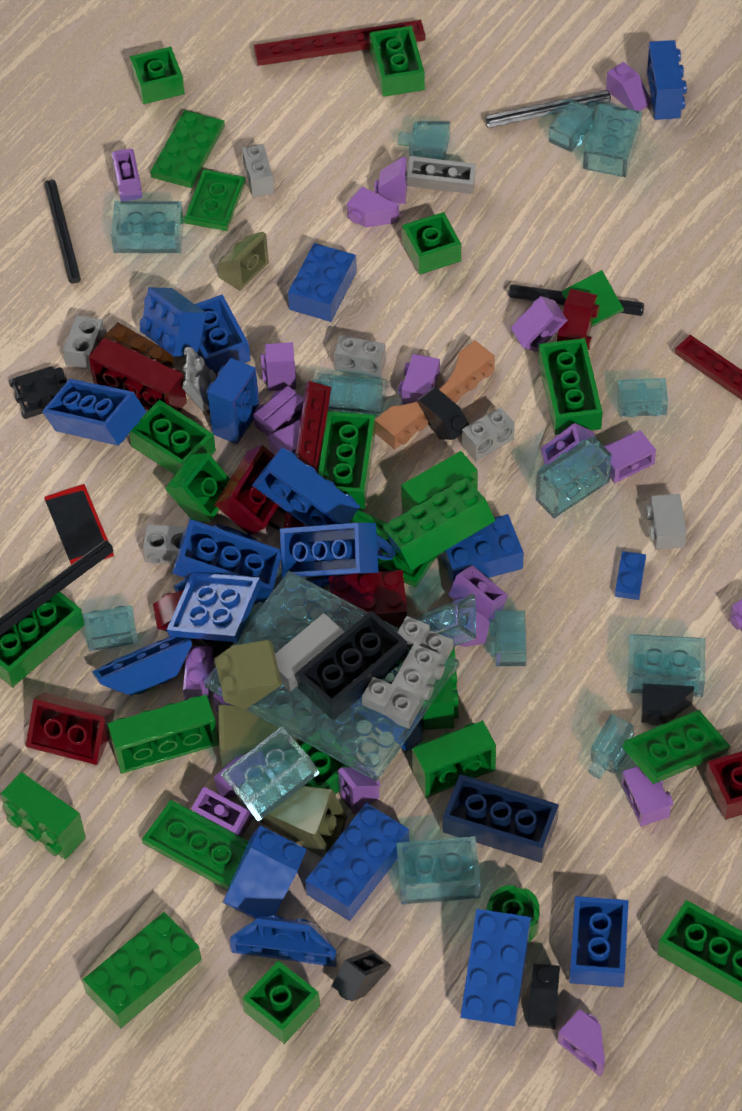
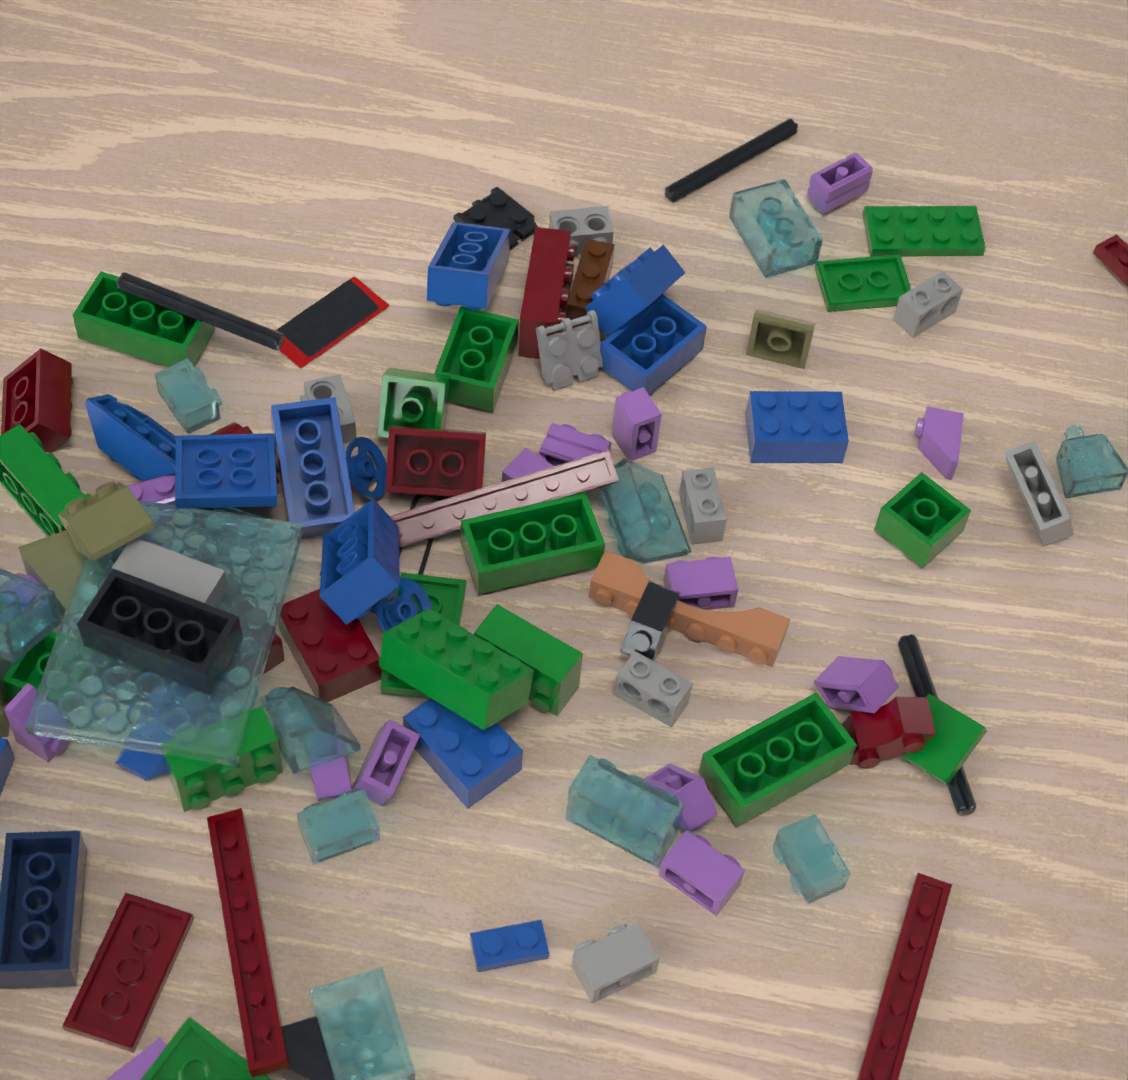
camera: 60 degrees right, 0 degrees up
(157, 75) = (1004, 159): green brick -> none
(233, 400) = (549, 387): blue brick -> none
(304, 492) = (434, 506): blue brick -> none
(393, 182) = (989, 445): medium lavender slope -> none
(416, 676) = (178, 711): light grey bracket -> none
(462, 752) = (112, 818): green brick -> none
(553, 779) = (128, 972): none -> dark red tile
(572, 705) = (247, 944): none -> dark red plate
(607, 748) = (206, 1002): clear light blue torso -> none

